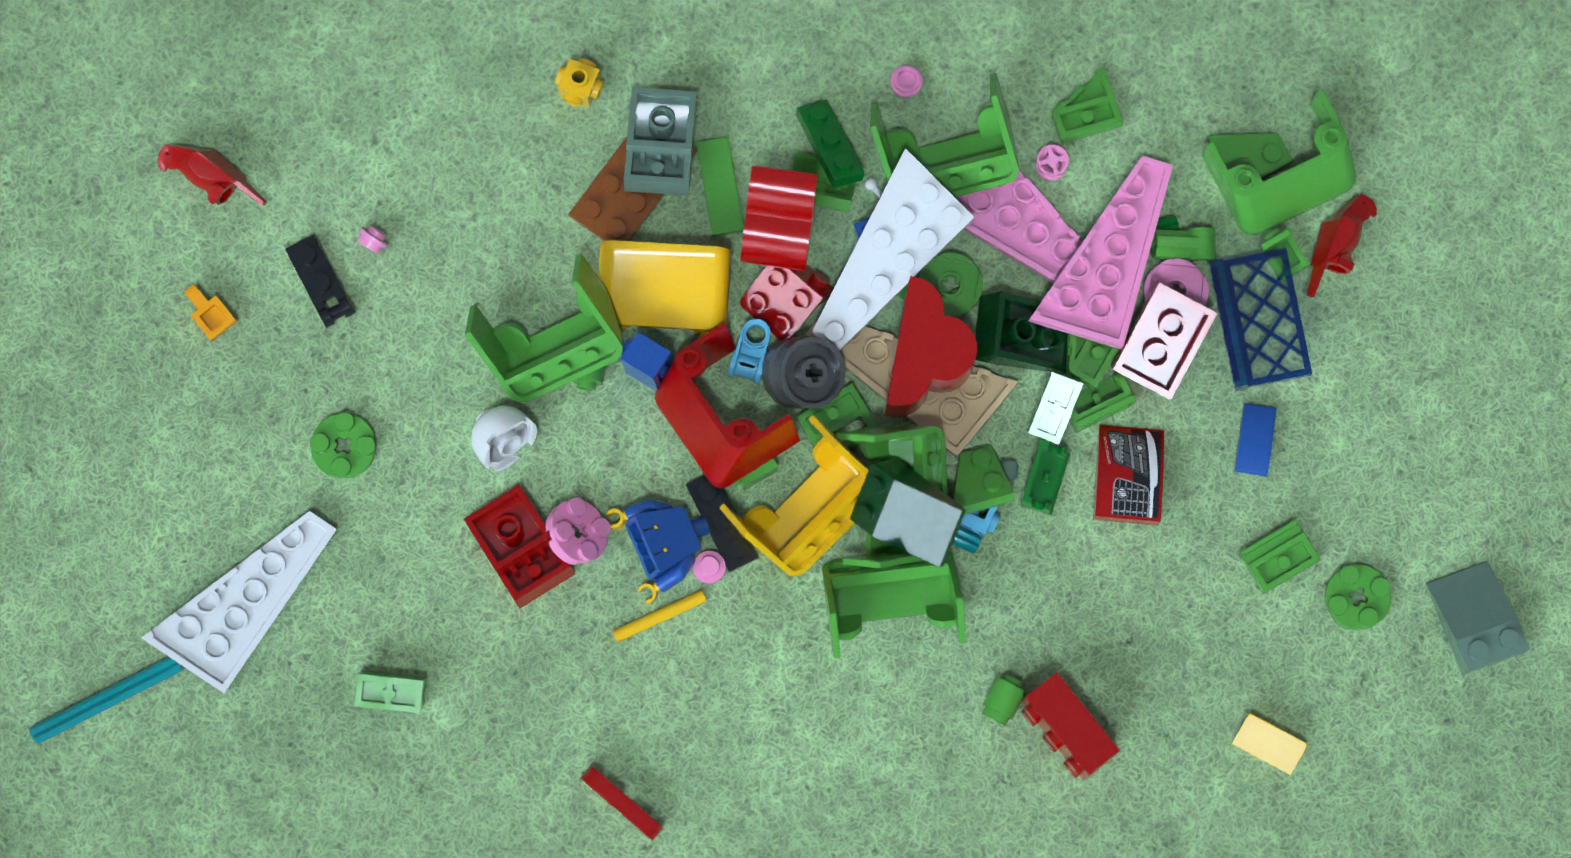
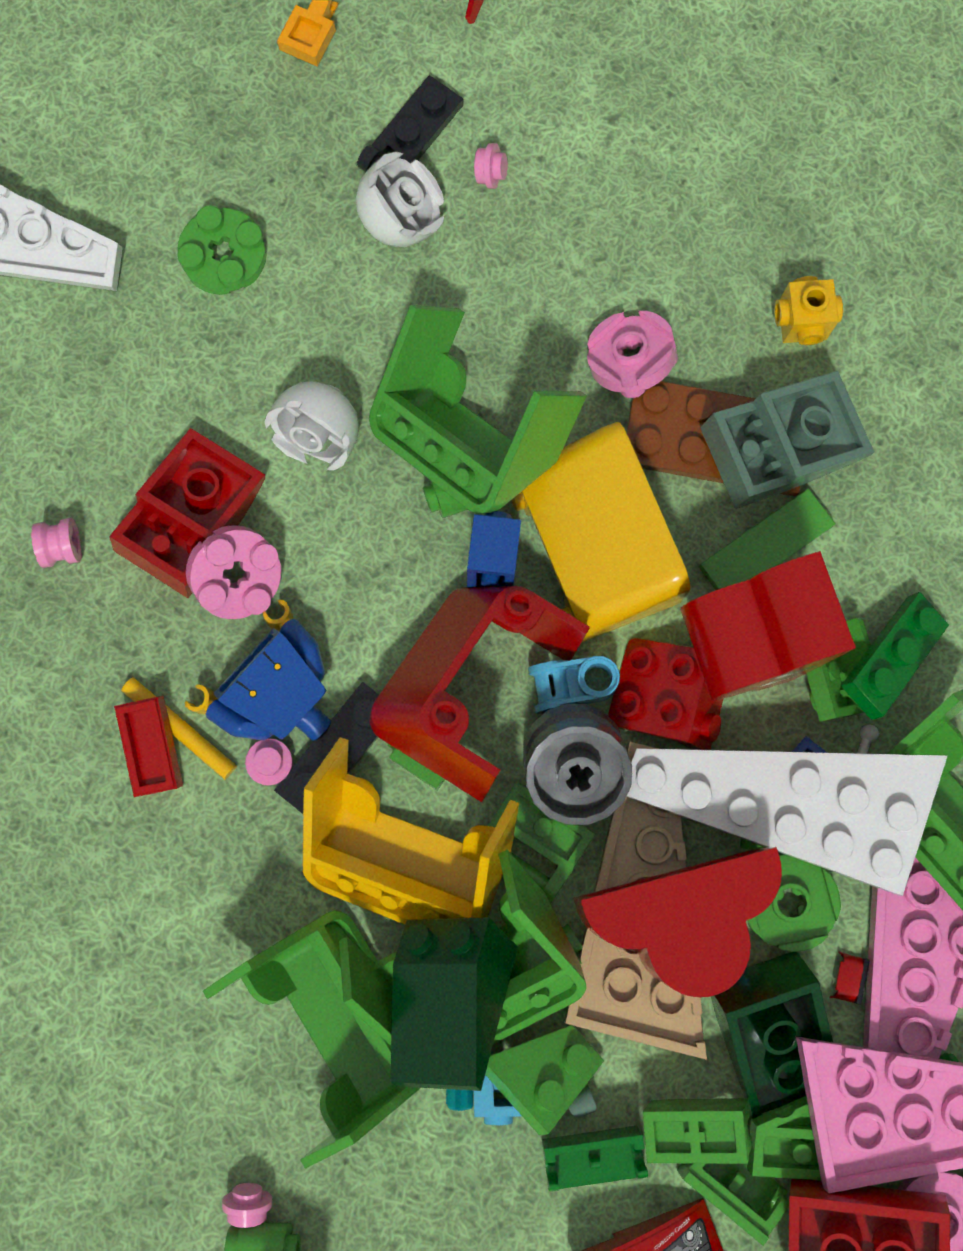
camera: 65 degrees right, 0 degrees up
(375, 310) = (399, 201): none -> white cylinder
(499, 639) = (56, 542): none -> bright pink wheel
(568, 213) = (633, 373): none -> bright pink plate
(662, 638) = (148, 746): none -> red tile
(974, 697) = (247, 1205): none -> bright pink plate
(1013, 272) = (851, 978): none -> red piece

